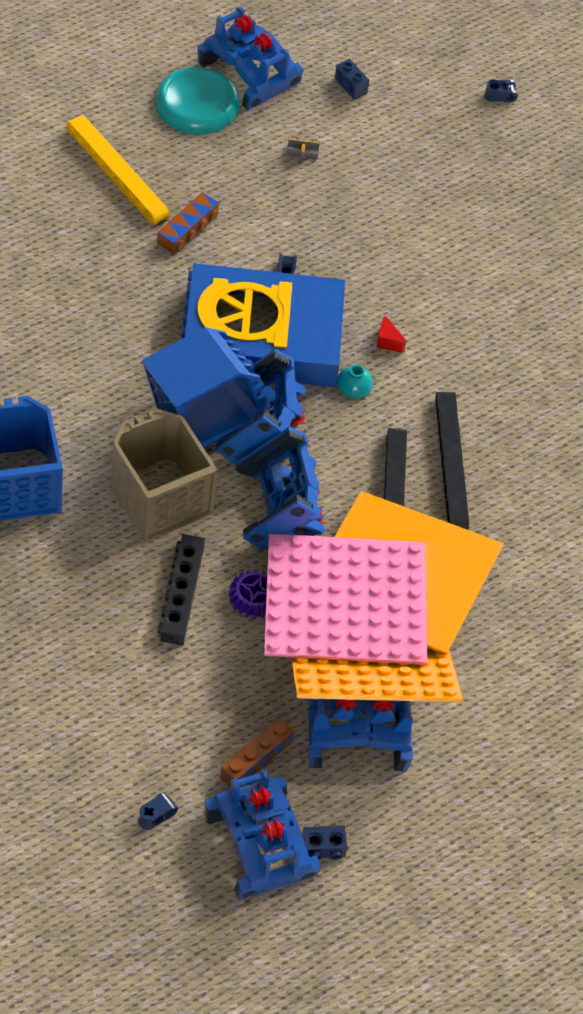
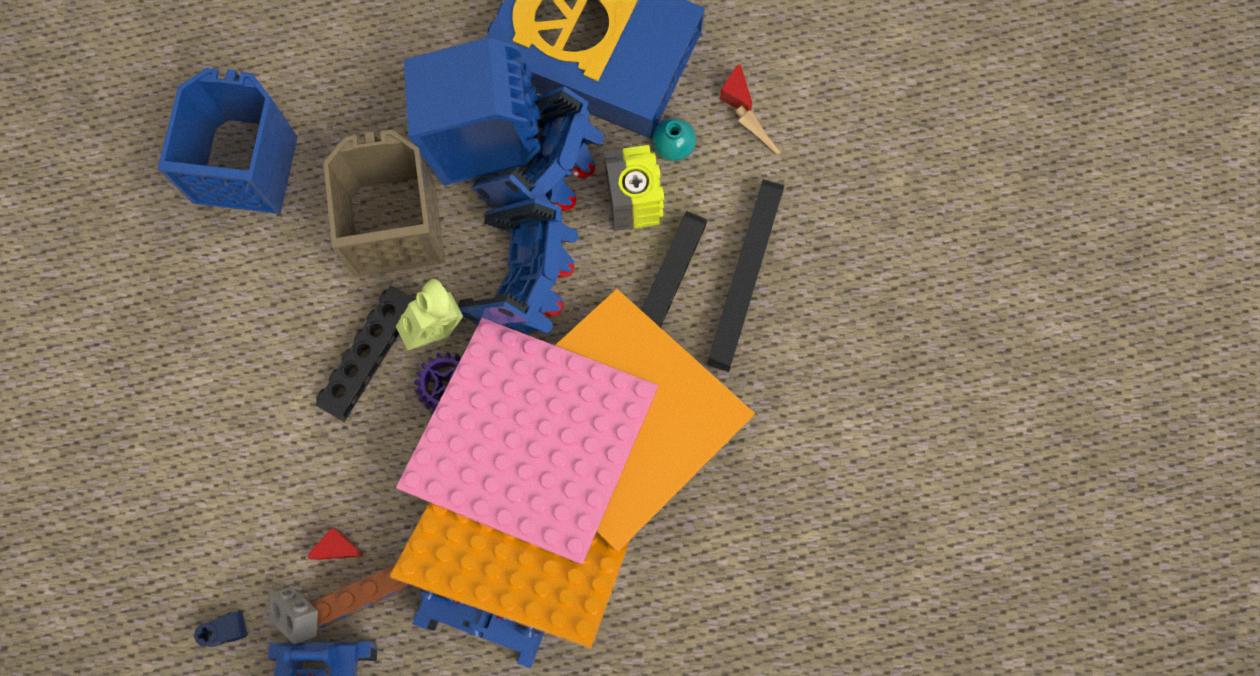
camera: 30 degrees right, 20 degrees up
(214, 779) = (293, 615): none -> light grey brick
(221, 728) = (334, 546): none -> red slope
(230, 540) = (429, 316): none -> yellowish green brick
(343, 418) = (634, 187): none -> piece
(408, 356) = (749, 120): none -> tan piece

